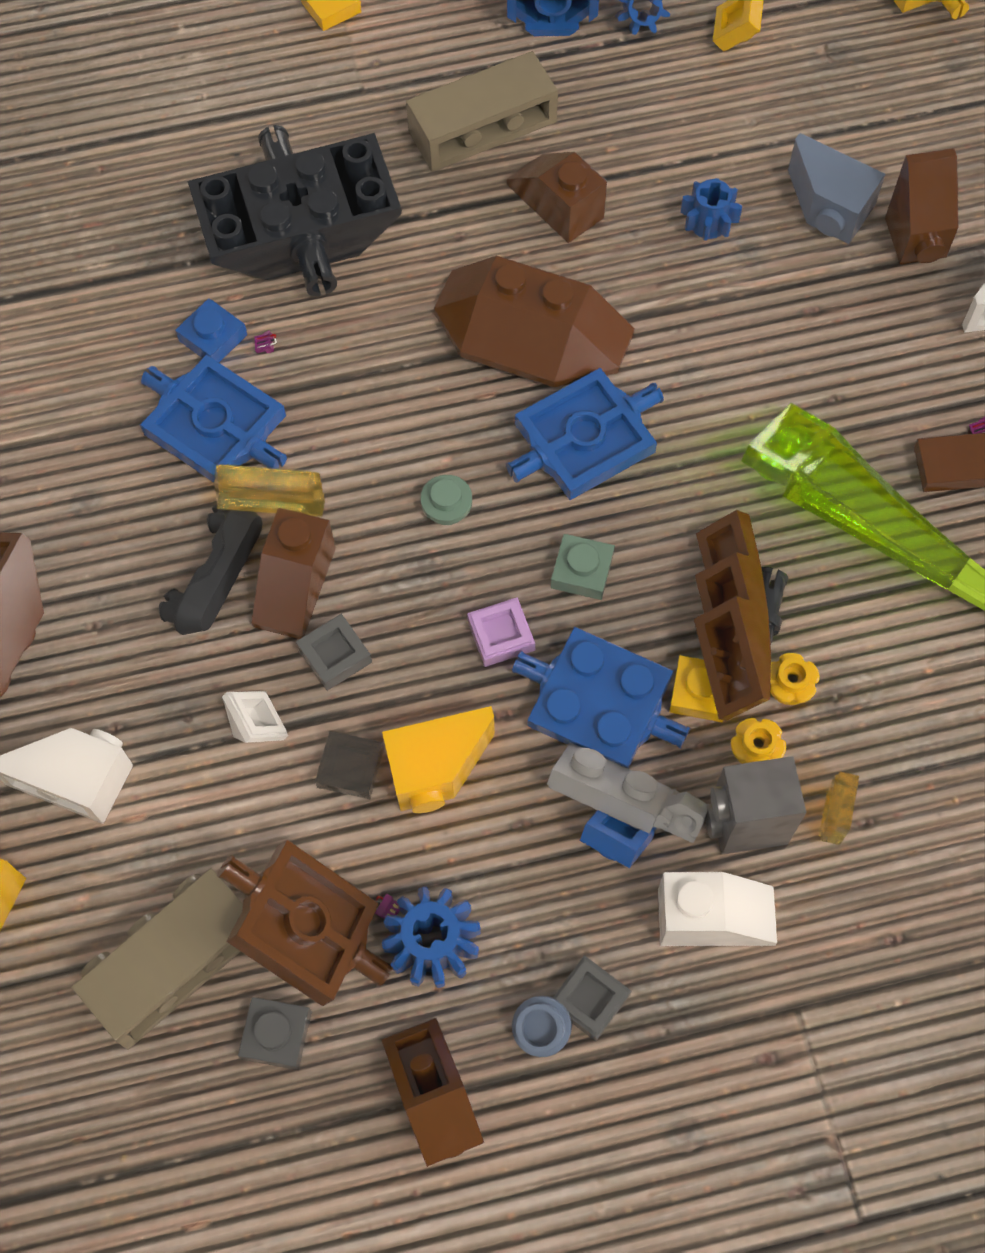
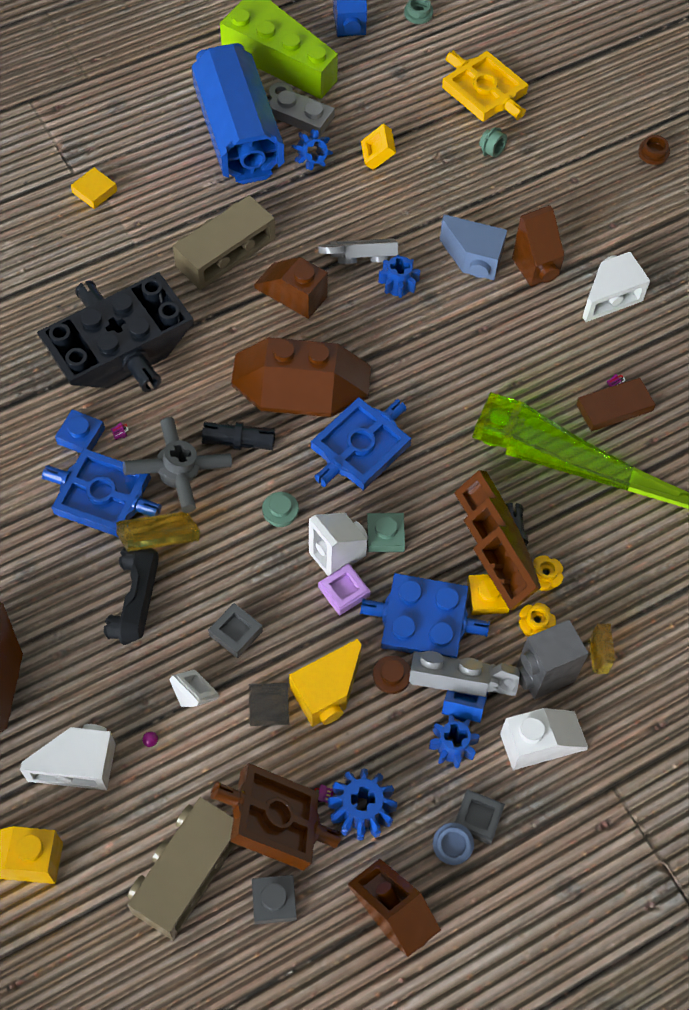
camera: 20 degrees left, 5 degrees down
(179, 770) = (150, 739): none -> magenta piece
(292, 572) = (190, 584): reddish brown slope -> none
(324, 405) = (177, 464): none -> dark grey bar
(420, 384) = (238, 435): none -> black pin
(507, 561) = (336, 541): none -> white slope
(528, 767) = (391, 674): none -> reddish brown plate
(600, 880) = (446, 747): none -> blue gear
(651, 159) = (349, 251): none -> light grey hinge
(907, 44) = (493, 142): none -> sand green plate

